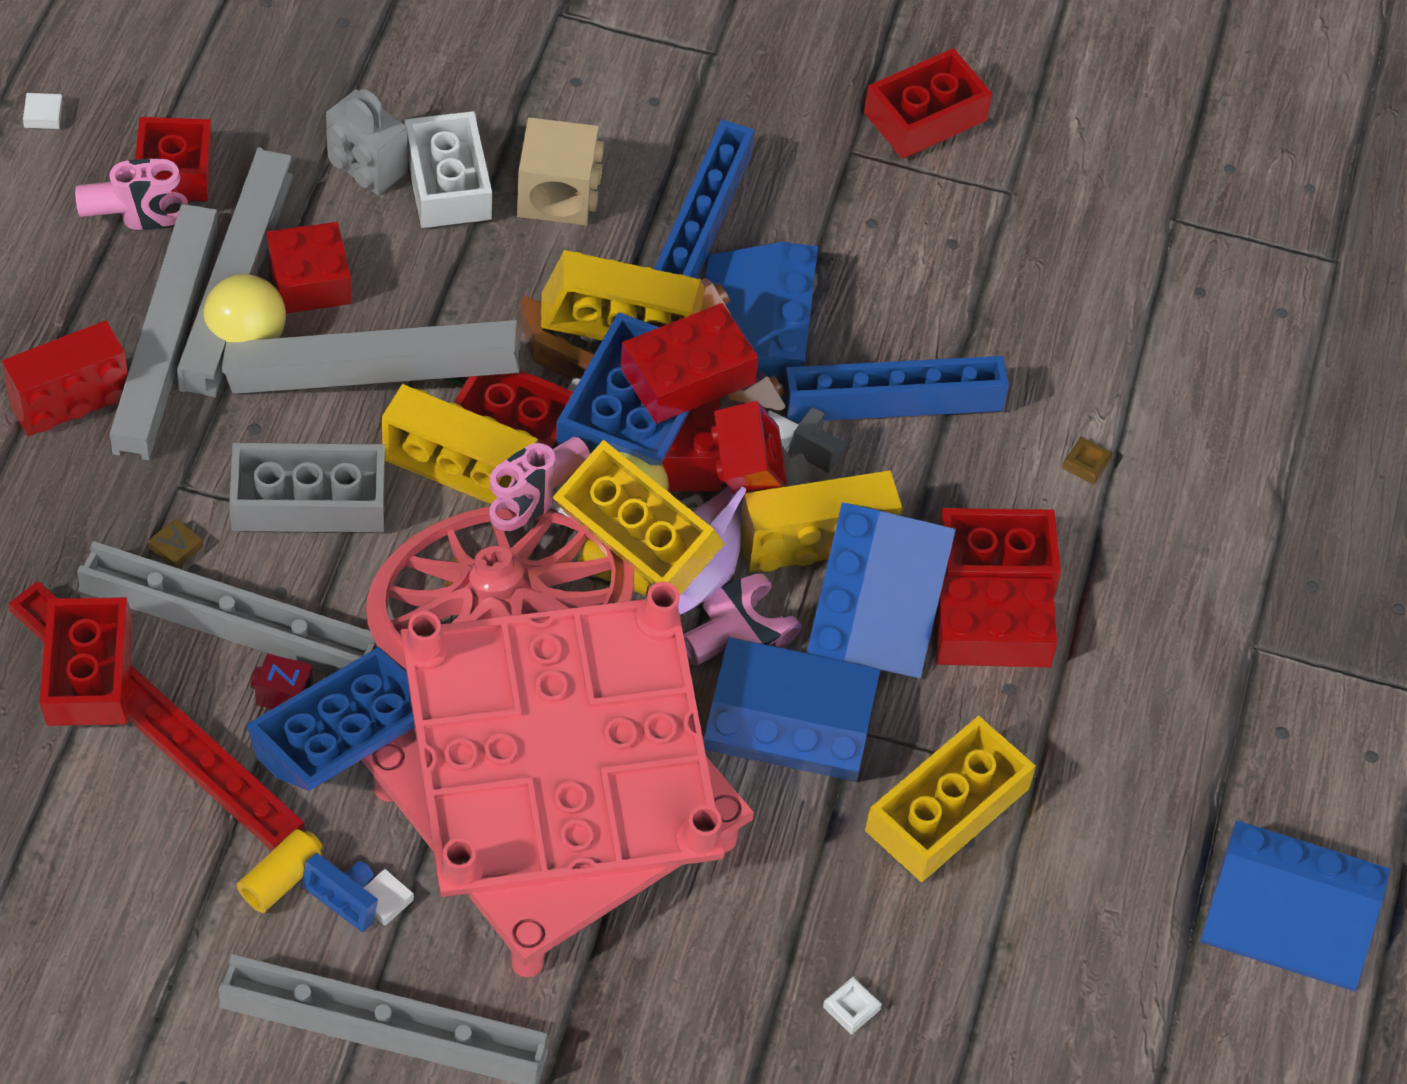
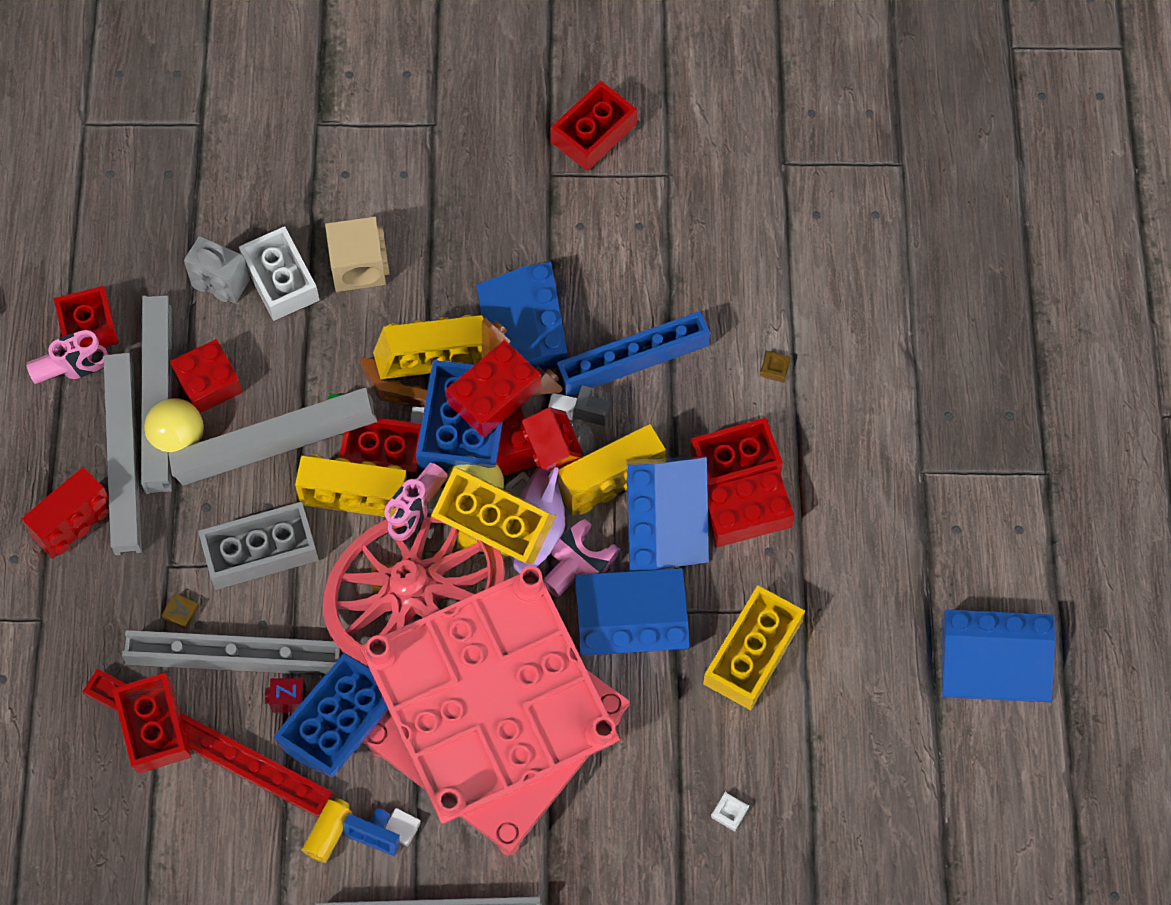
camera: 10 degrees left, 10 degrees up
(707, 201) = (464, 250): blue brick -> none

